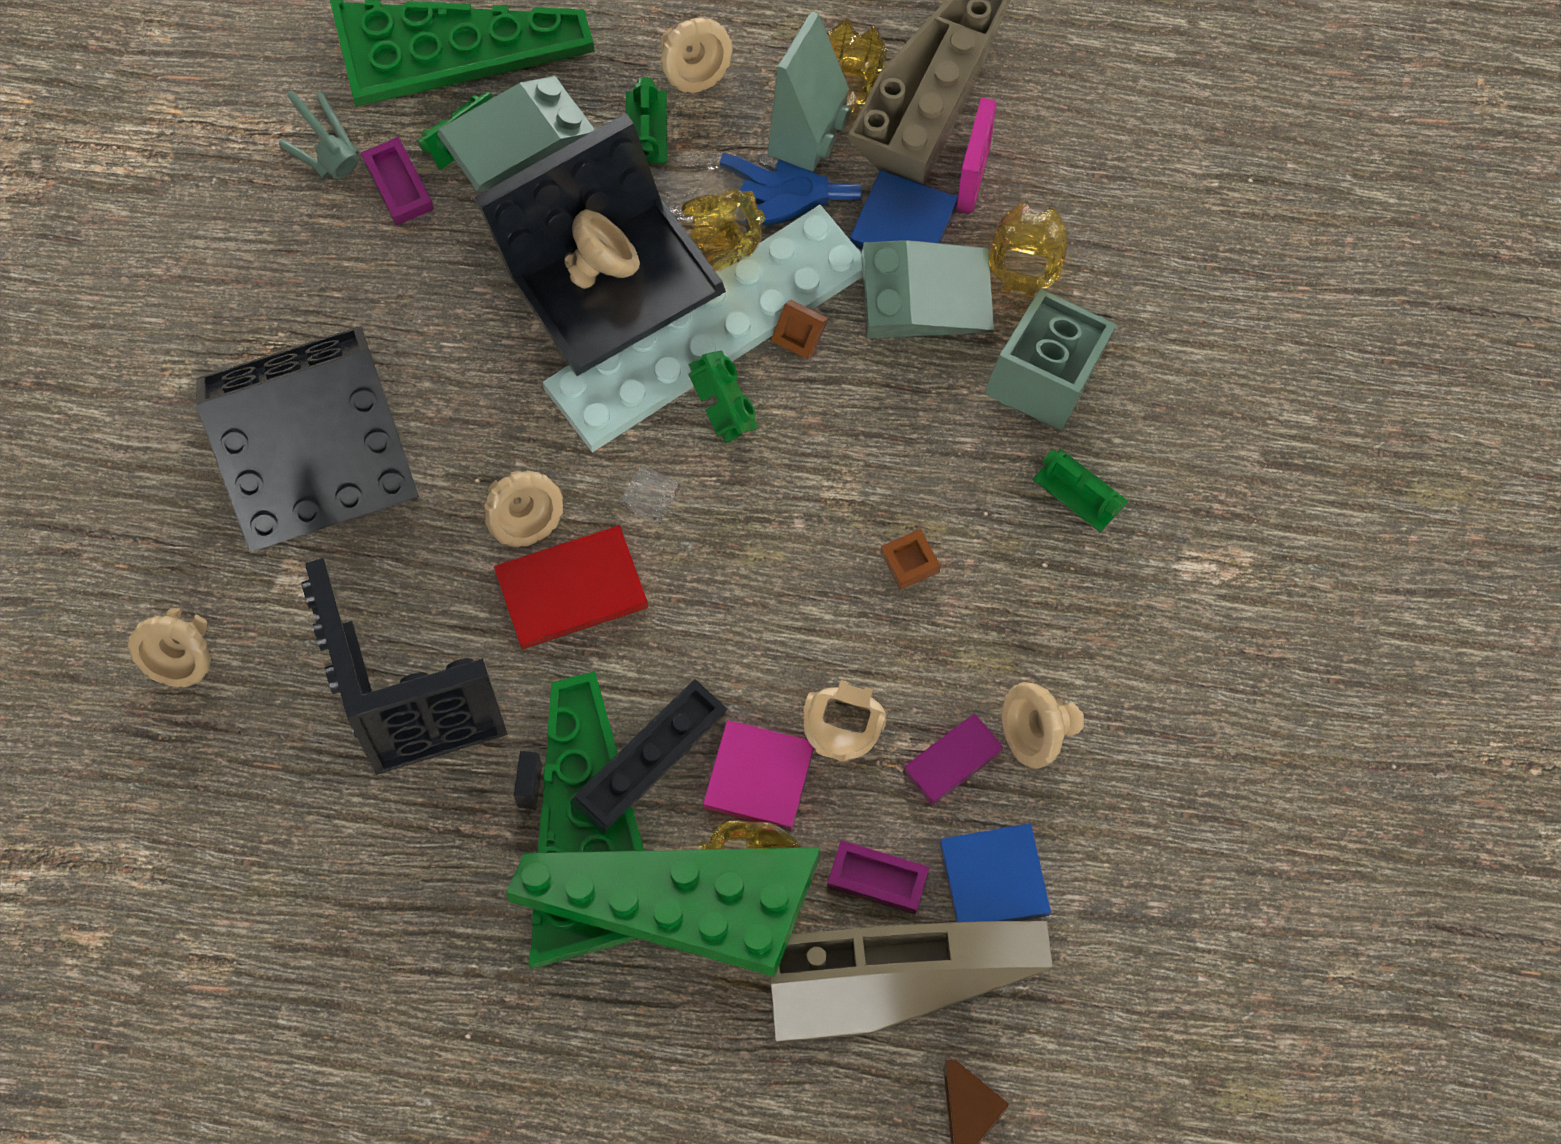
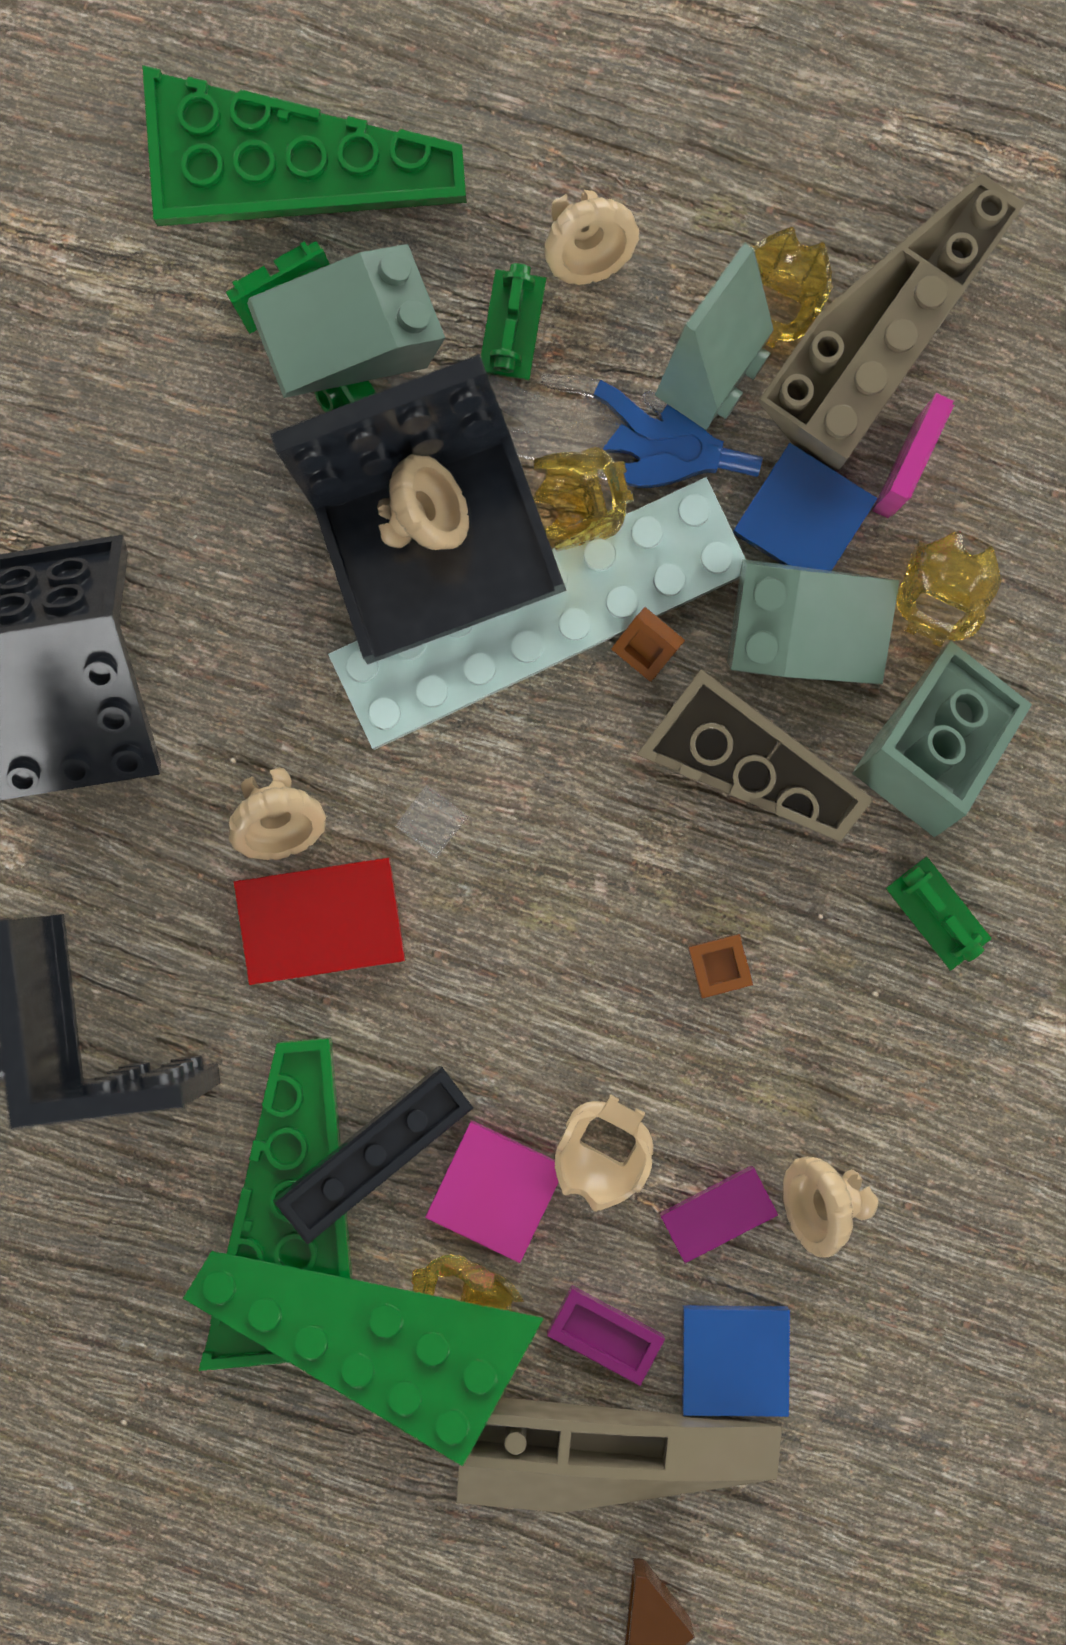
camera: 15 degrees right, 20 degrees up
(335, 155) = (121, 294): sand green plant -> none
(397, 181) = (193, 341): magenta tile -> none
(528, 780) = (231, 1154): black tile -> none
(717, 377) = (547, 740): green hinge -> none
(899, 393) = (742, 753): none -> dark tan wedge

